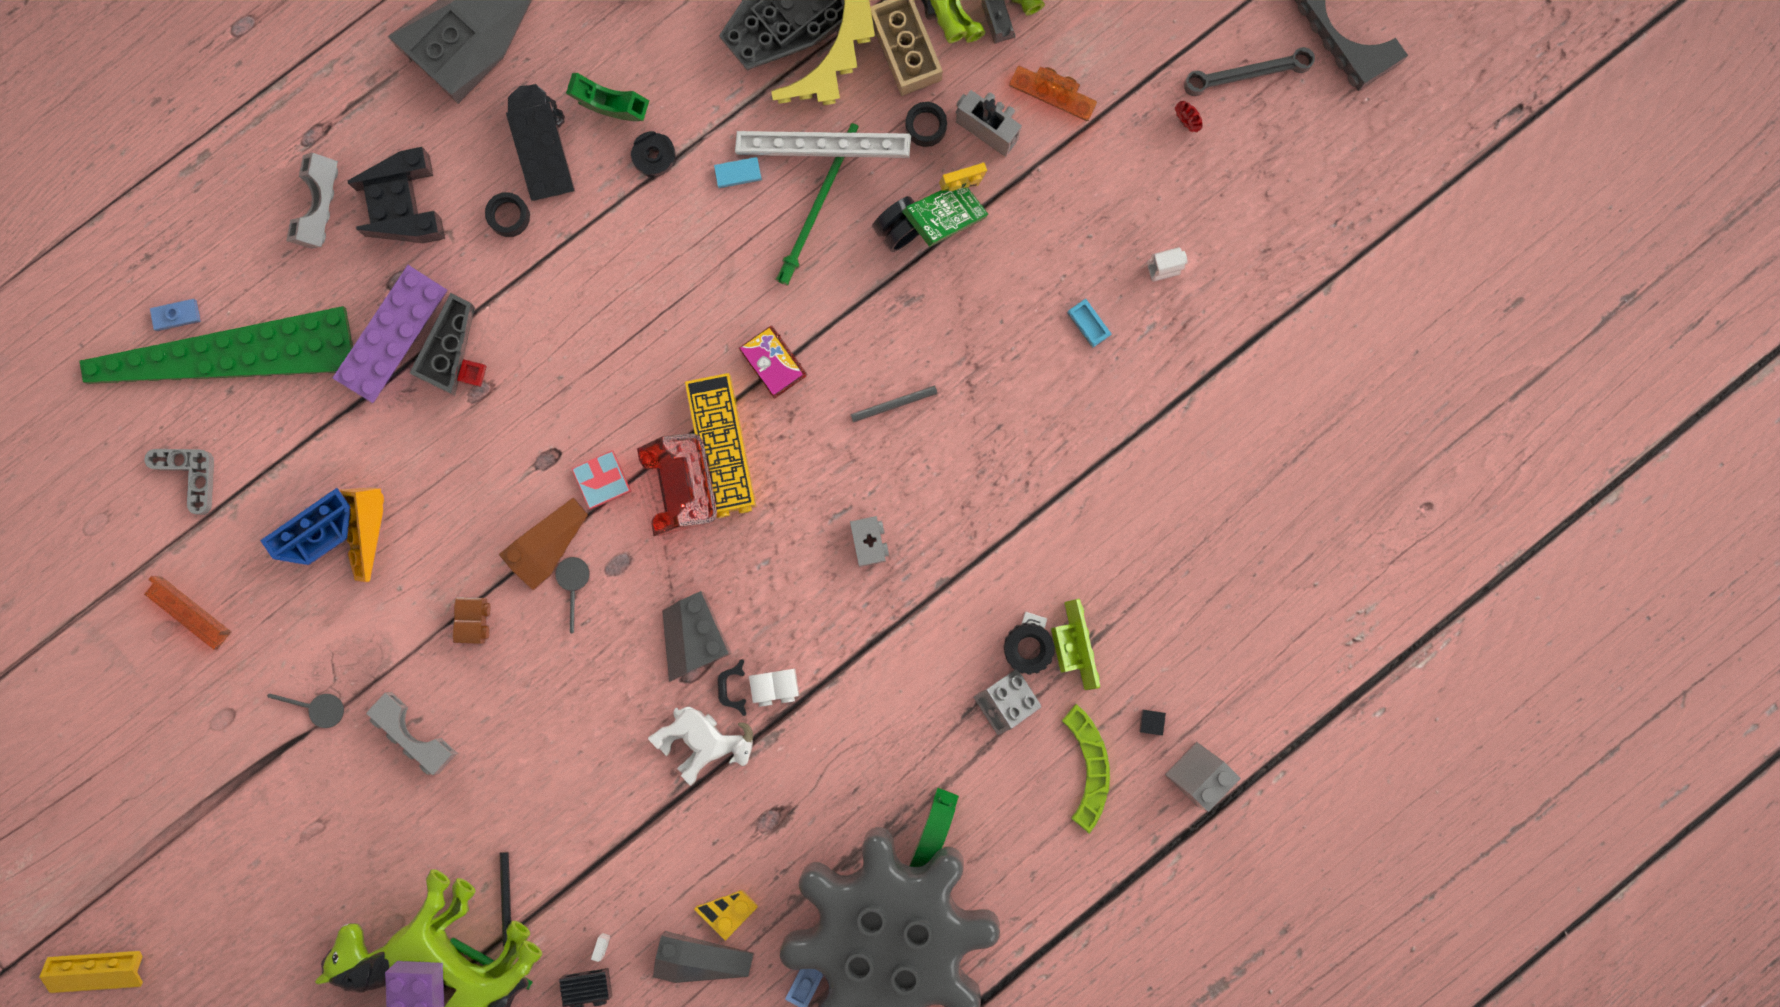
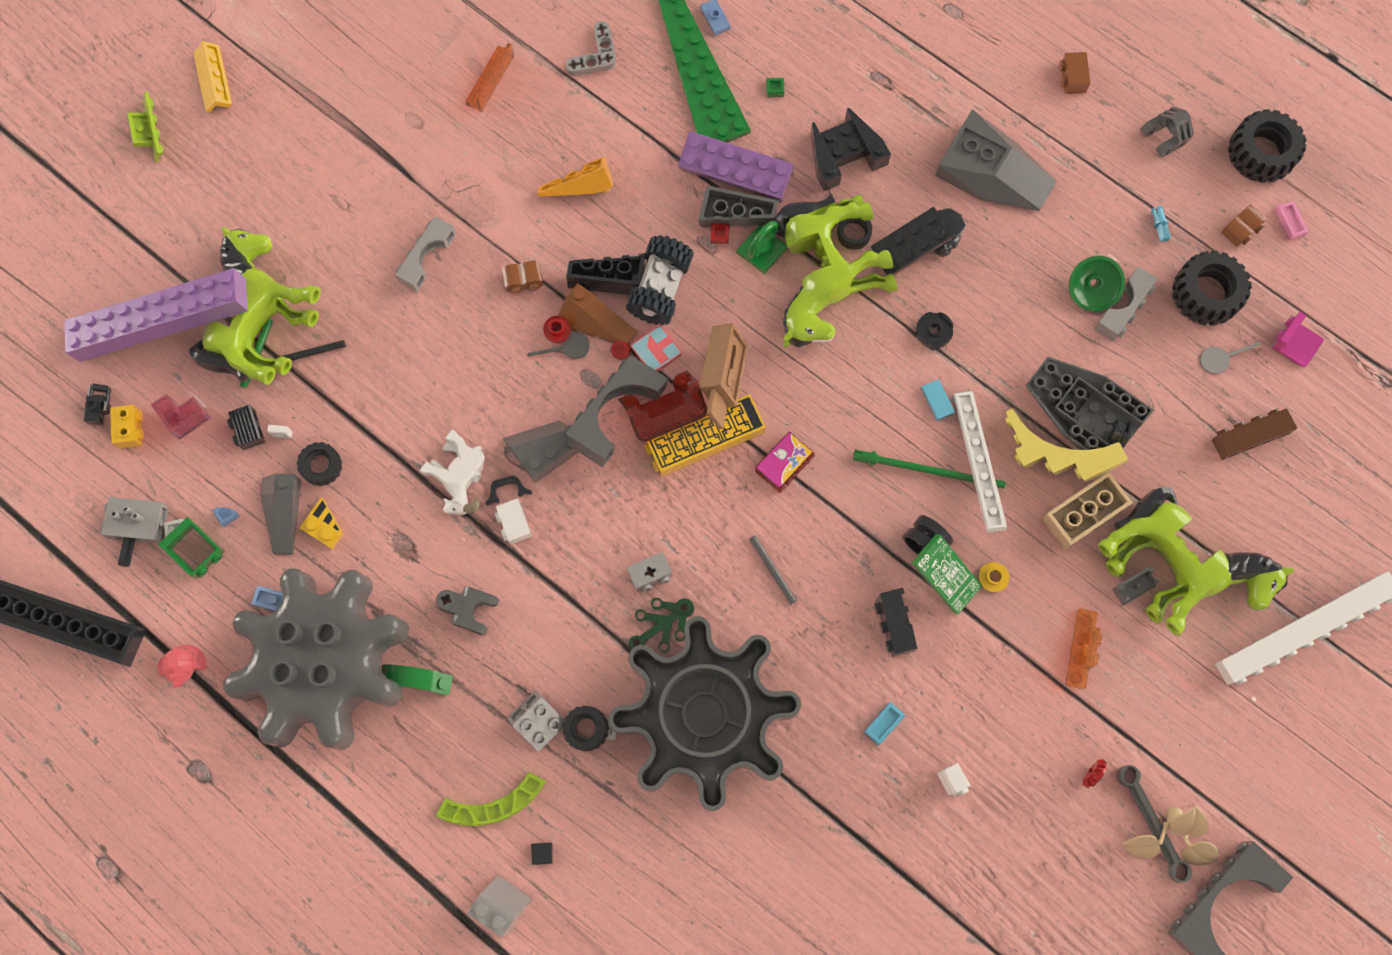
camera: 80 degrees right, 10 degrees down
(292, 263) = (775, 87): none -> green tile
(311, 531) = (567, 145): blue wedge -> none
(319, 175) = (849, 88): light grey arch -> none
(324, 710) = (433, 189): dark grey piece -> none
(491, 262) = (810, 228): none -> lime animal
(494, 516) = (607, 274): none -> black wedge
(502, 327) = (762, 247): none -> green tile
(503, 445) = (664, 268): none -> black plate
(549, 591) = (557, 329): none -> red plate
(591, 521) = (620, 350): none -> red tile
(609, 102) = (968, 282): green arch -> none
(634, 910) = (329, 474): none -> black tyre
(652, 405) = (723, 371): none -> medium nougat piece
(693, 579) = (631, 378): none -> dark grey arch
(863, 761) = (464, 607): none -> dark grey piece
(923, 107) = (1033, 534): black tyre -> none
(929, 538) = (664, 622): none -> dark green plant
(950, 154) = (987, 583): none -> yellow piece
(963, 178) = (981, 582): yellow wing -> none
(985, 283) = (895, 623): none -> black wedge
(988, 121) = (1038, 595): light grey piece -> none
(1044, 511) = (705, 713): none -> dark grey brick
(1074, 646) = (595, 767): lime bracket -> none
(1268, 30) = (1189, 823): none -> tan plant

